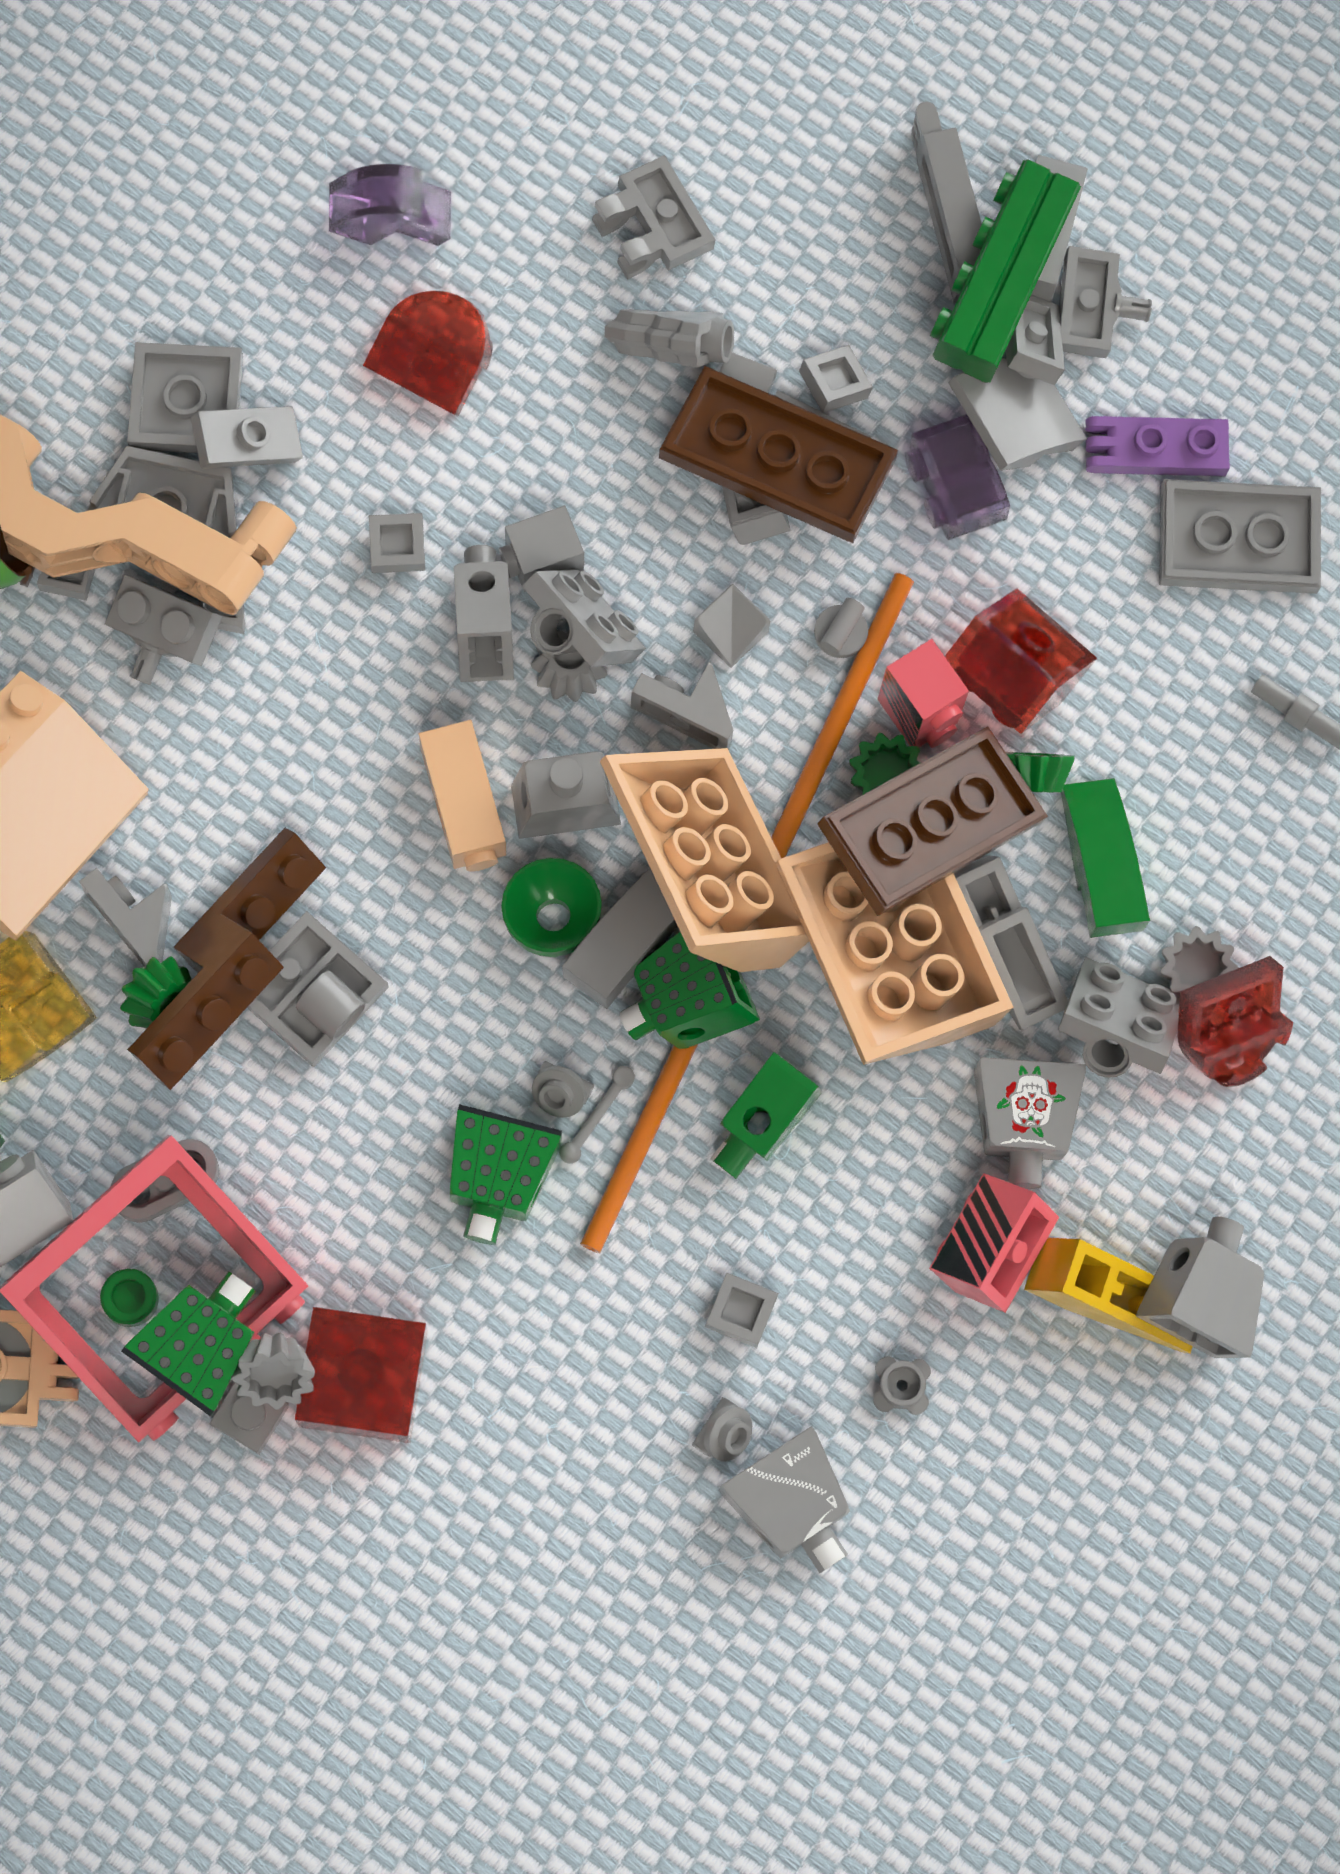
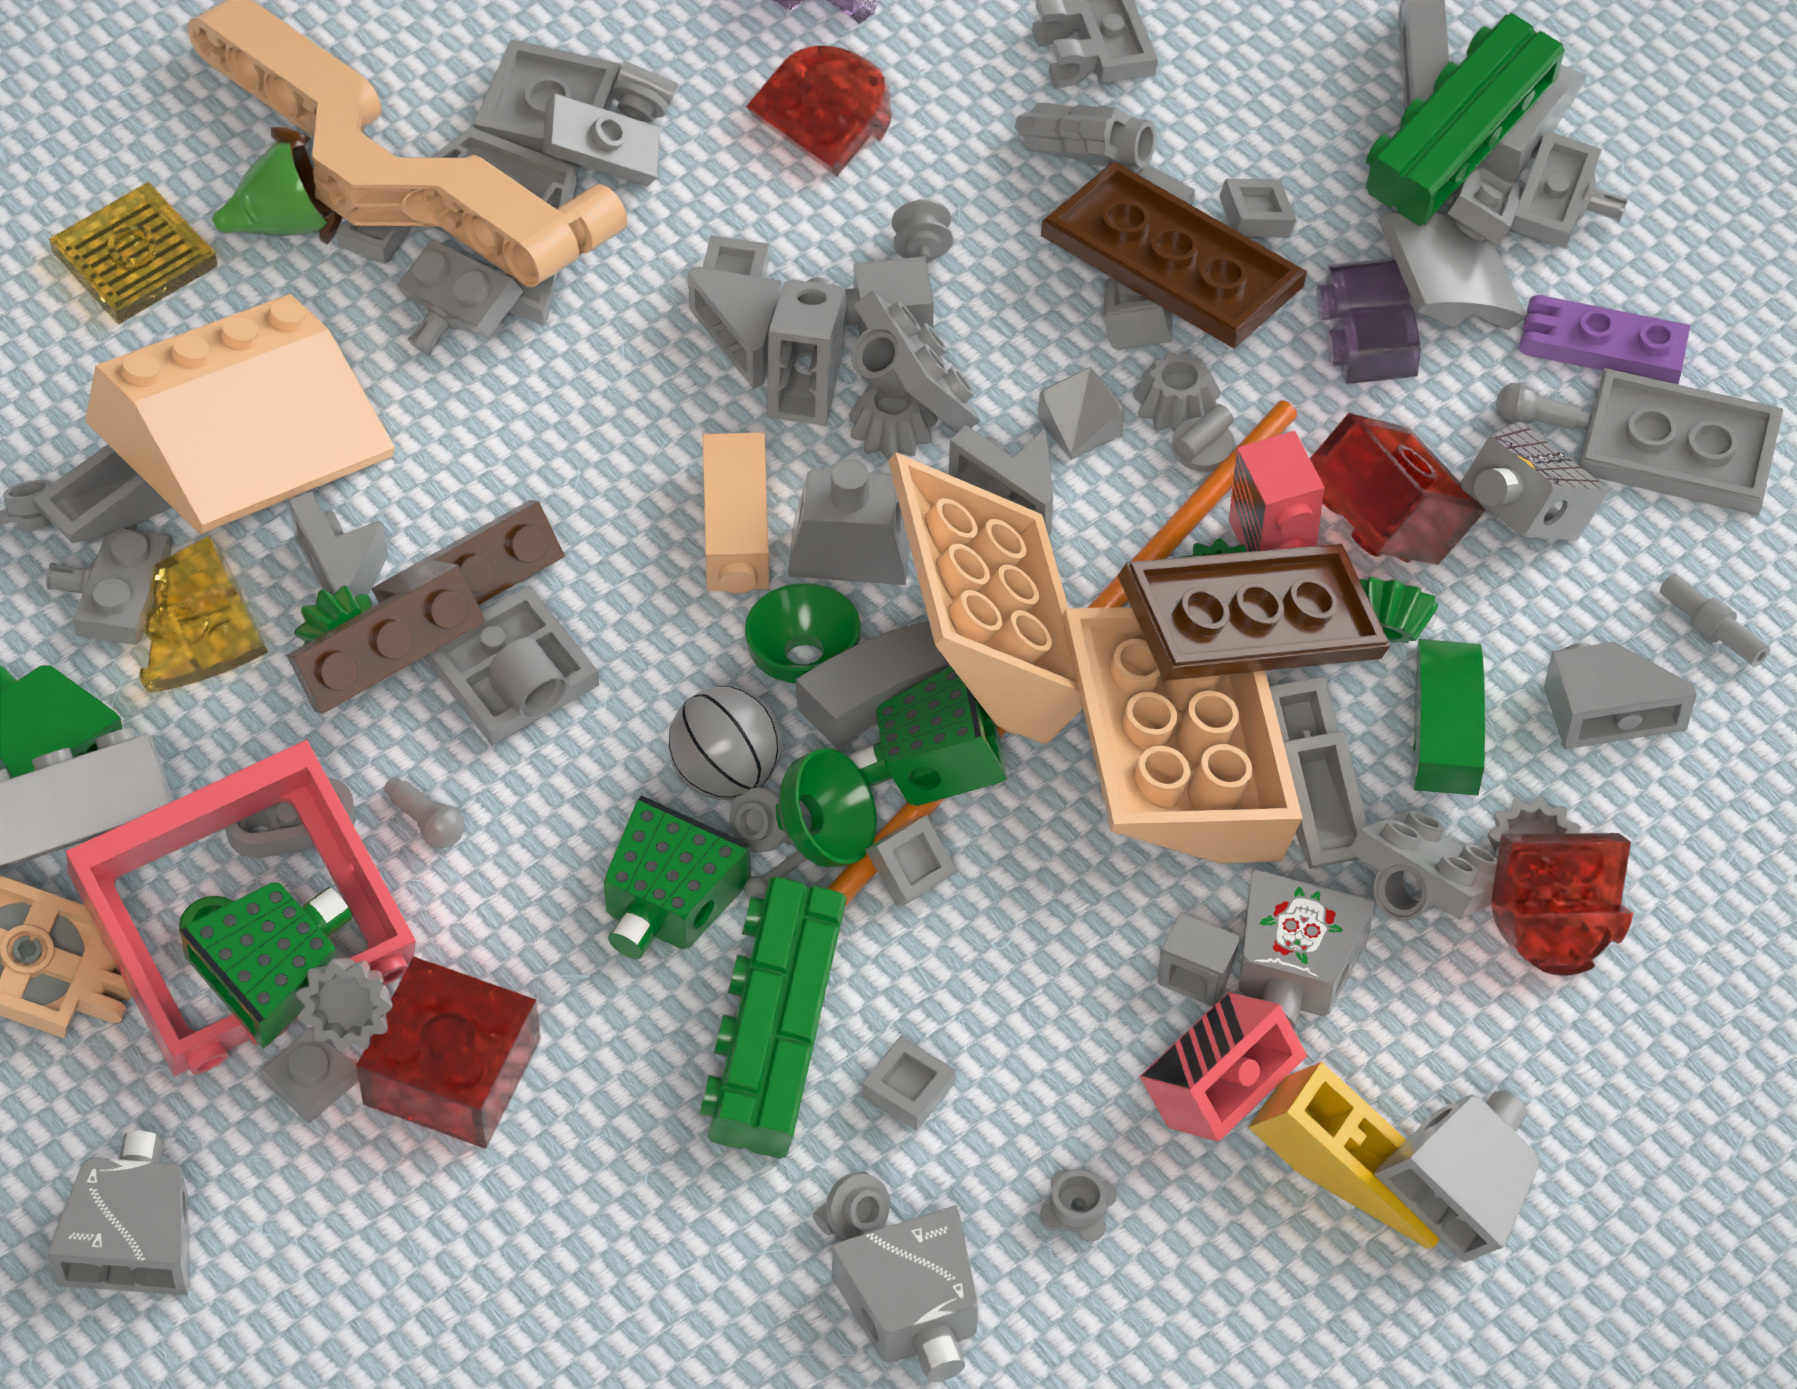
camera: 20 degrees right, 20 degrees down
(141, 1589) = (125, 1223): none -> light grey torso
(267, 371) = (642, 92): none -> light grey plate
(291, 1155) = (439, 823): none -> light grey piece
(415, 593) = (736, 315): none -> light grey slope
(514, 1033) = (724, 742): none -> light grey piece
(551, 467) = (922, 229): none -> light grey wheel
(621, 1281) = (775, 1018): none -> green brick
(626, 1080) = (838, 806): none -> green piece
(694, 1103) = (911, 860): none -> light grey plate
(777, 1091) = (992, 876): green torso -> none
(806, 583) = (1176, 391): none -> light grey piece
(950, 1143) = (1197, 959): none -> light grey slope
(1100, 532) = (1521, 404): none -> light grey piece
(1129, 623) = (1524, 477): none -> light grey torso
(1232, 809) = (1613, 695): none -> light grey slope

